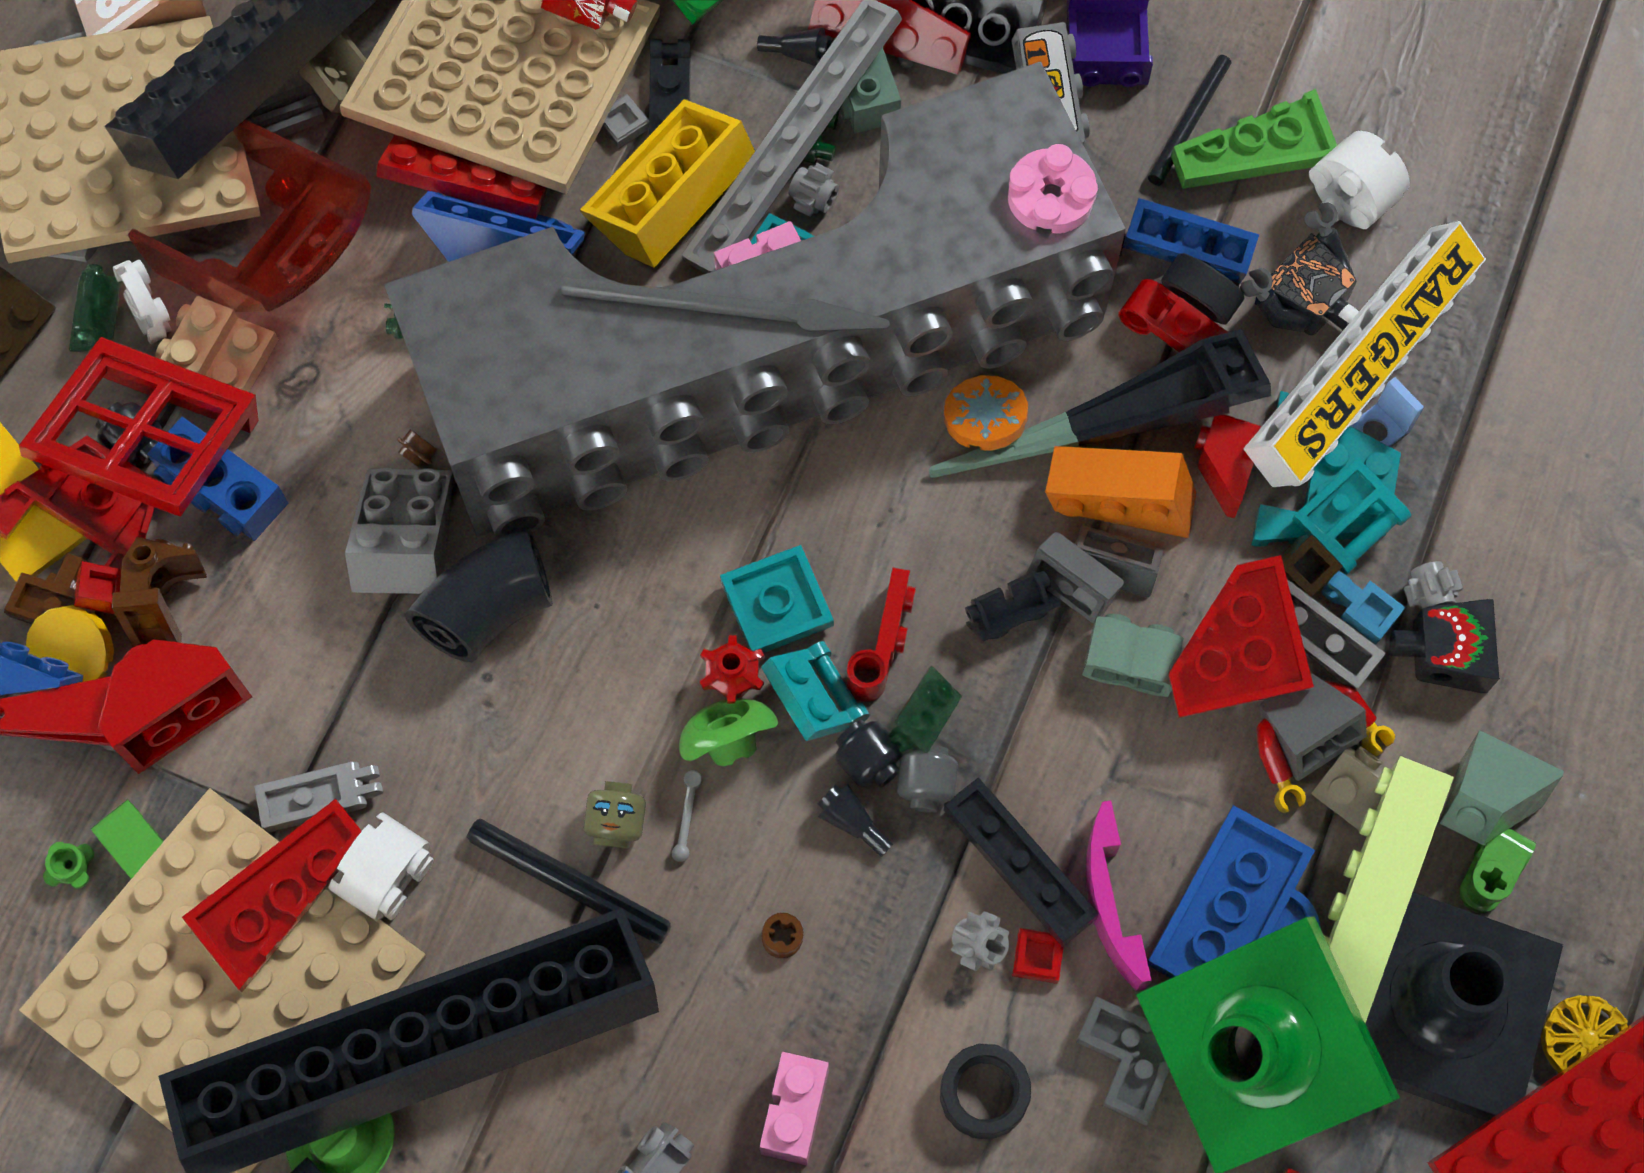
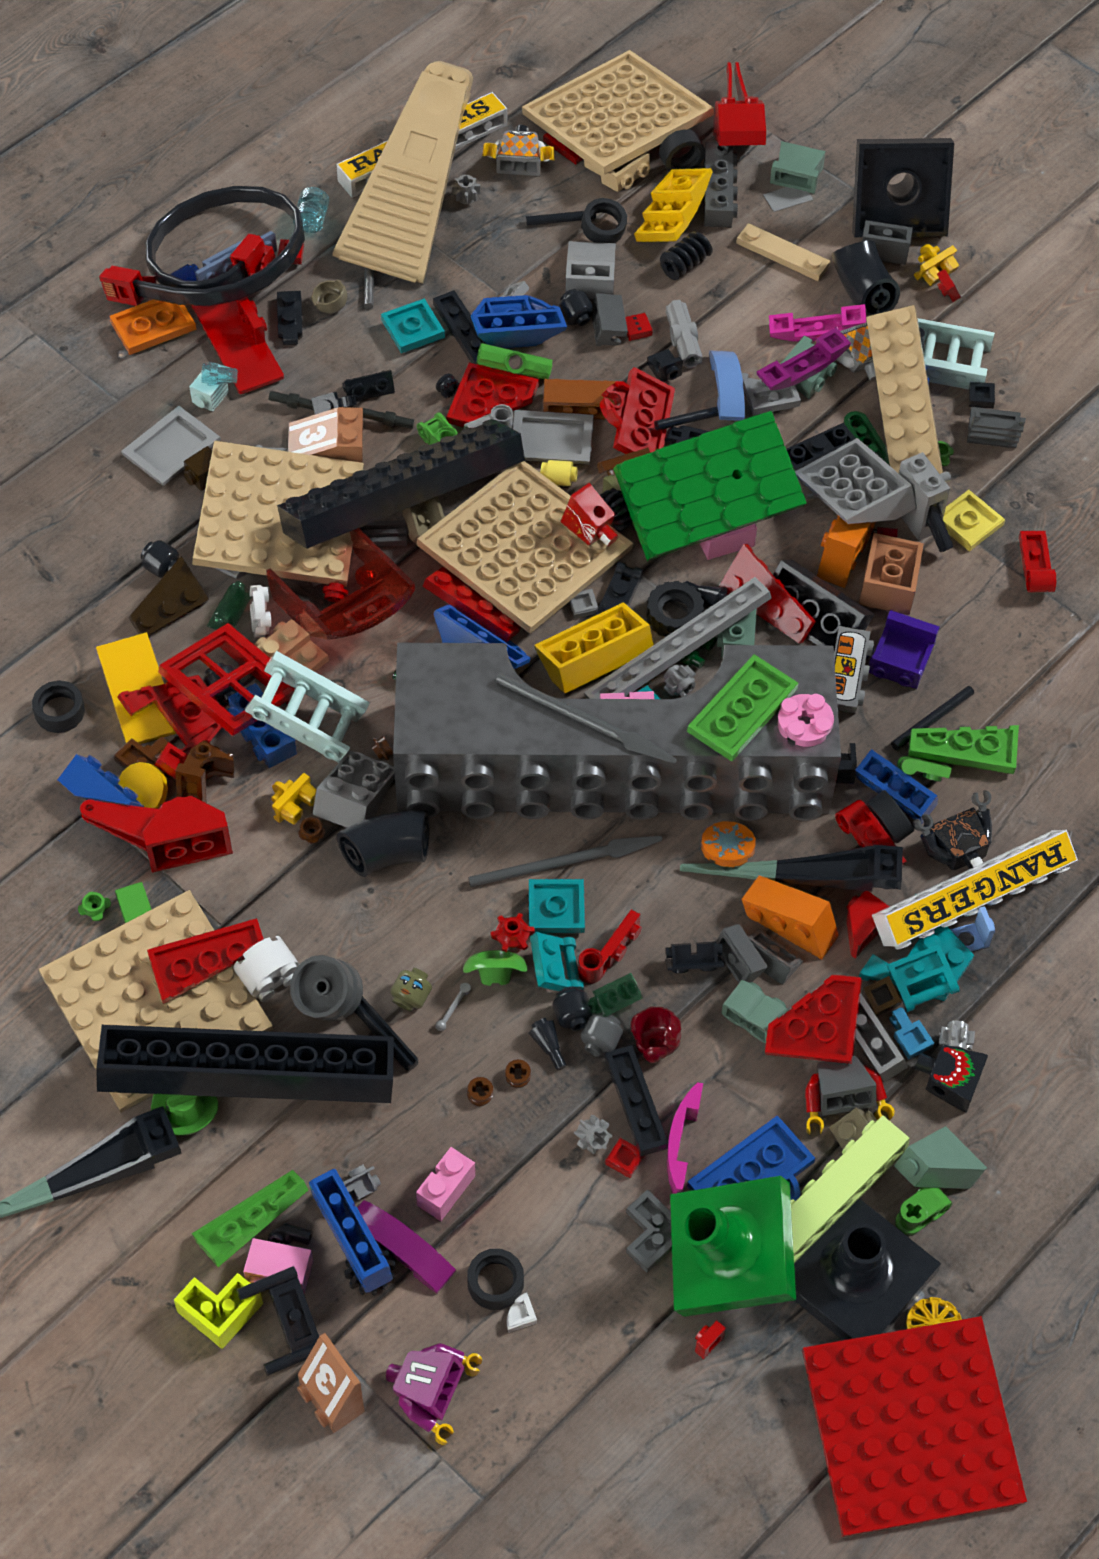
camera: 20 degrees right, 10 degrees down
(246, 230) = (334, 592): none -> red plate
(282, 391) = (317, 687): none -> light aqua fence
(299, 797) = (231, 913): light grey hinge -> none
(304, 576) = (289, 795): none -> yellow hips
(360, 606) = (311, 824): none -> reddish brown plate
(487, 868) = (326, 988): none -> dark grey wheel
(753, 57) = (672, 592): none -> black tyre
(820, 897) = (525, 1069): none -> reddish brown bush
(823, 479) = (615, 848): none -> dark grey piece
(953, 204) = (742, 707): none -> bright green plate
(1008, 746) = (656, 1033): none -> dark red hair
(1010, 1065) = (560, 1195): black tyre -> none
(1228, 198) = (930, 770): none -> bright green plate
(1360, 179) = (1017, 786): white brick -> none

